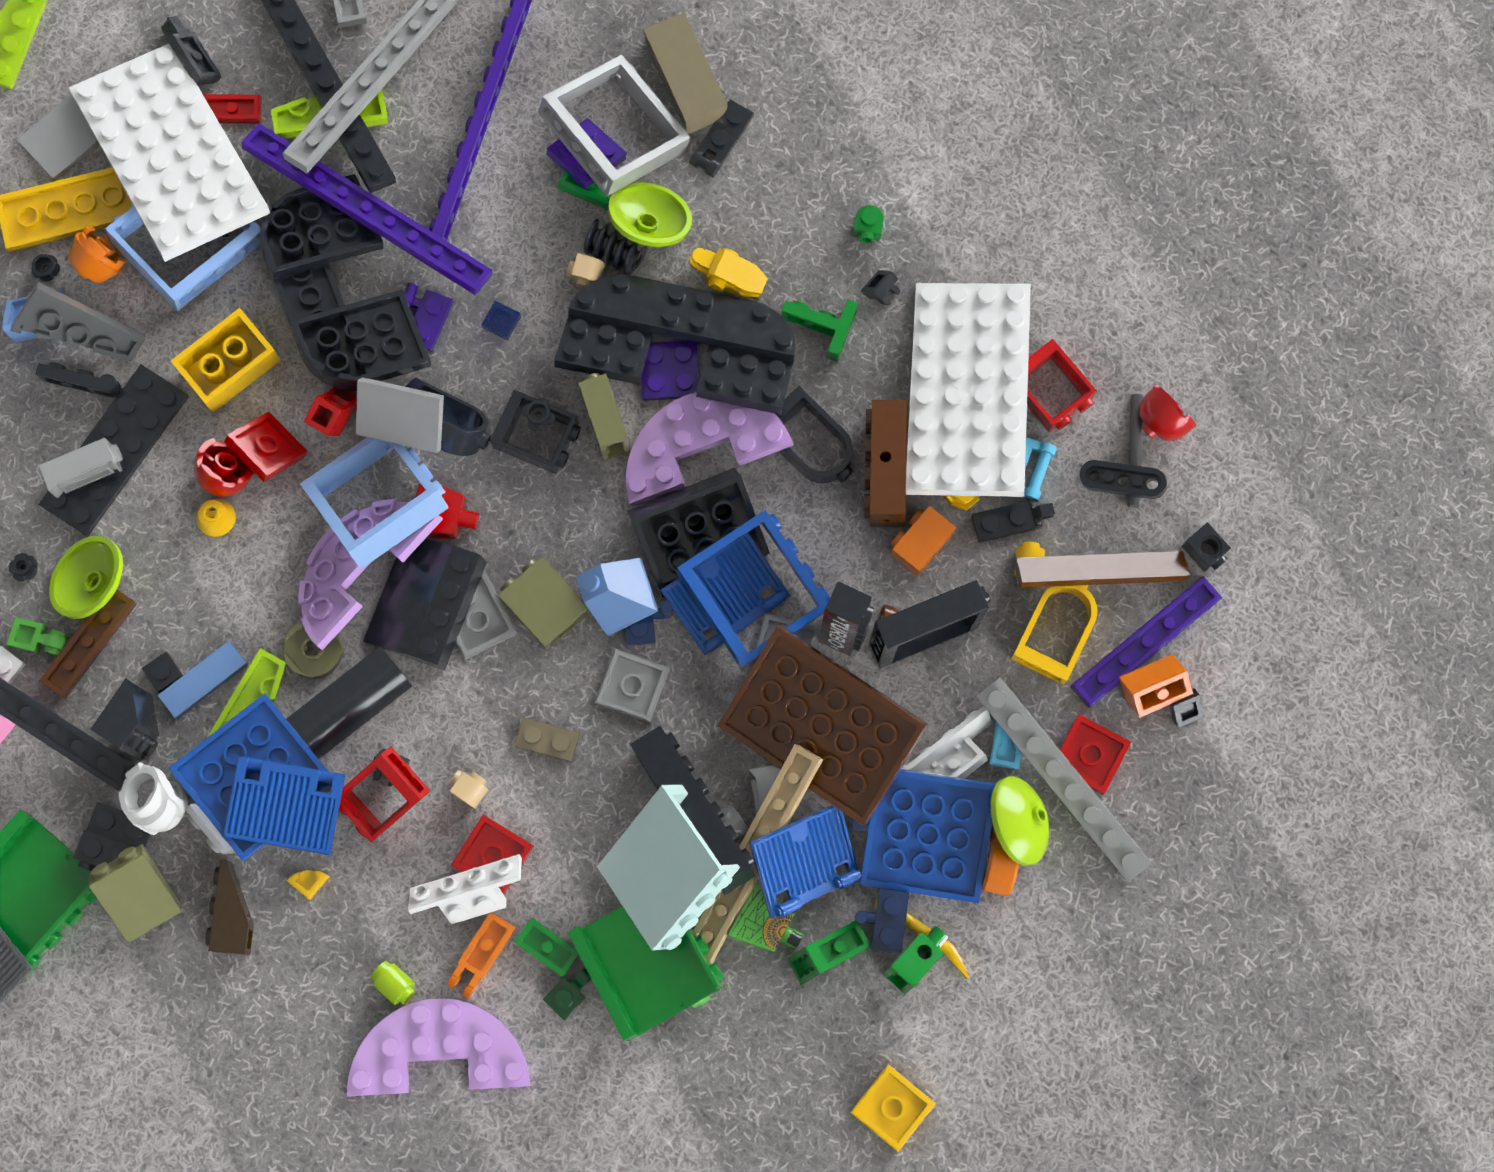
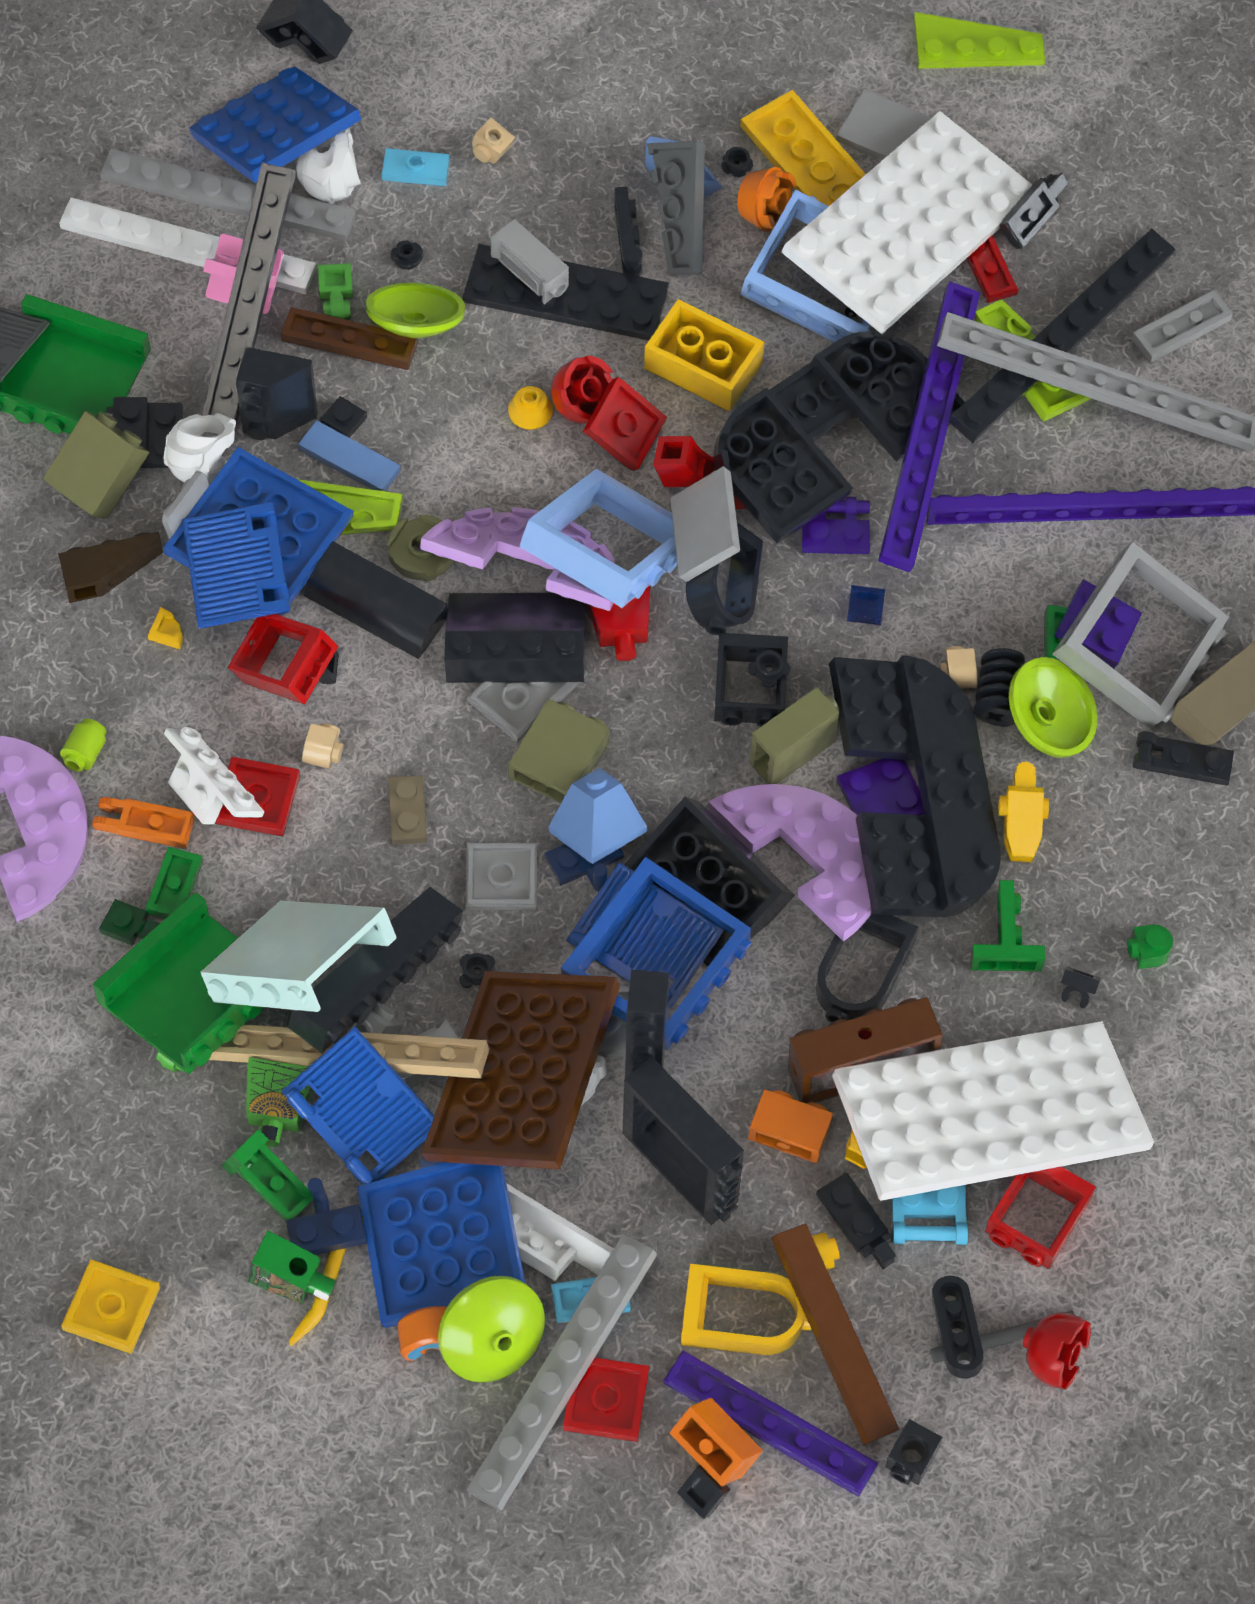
camera: 70 degrees right, 15 degrees down
(707, 724) = (473, 962): none -> black plate

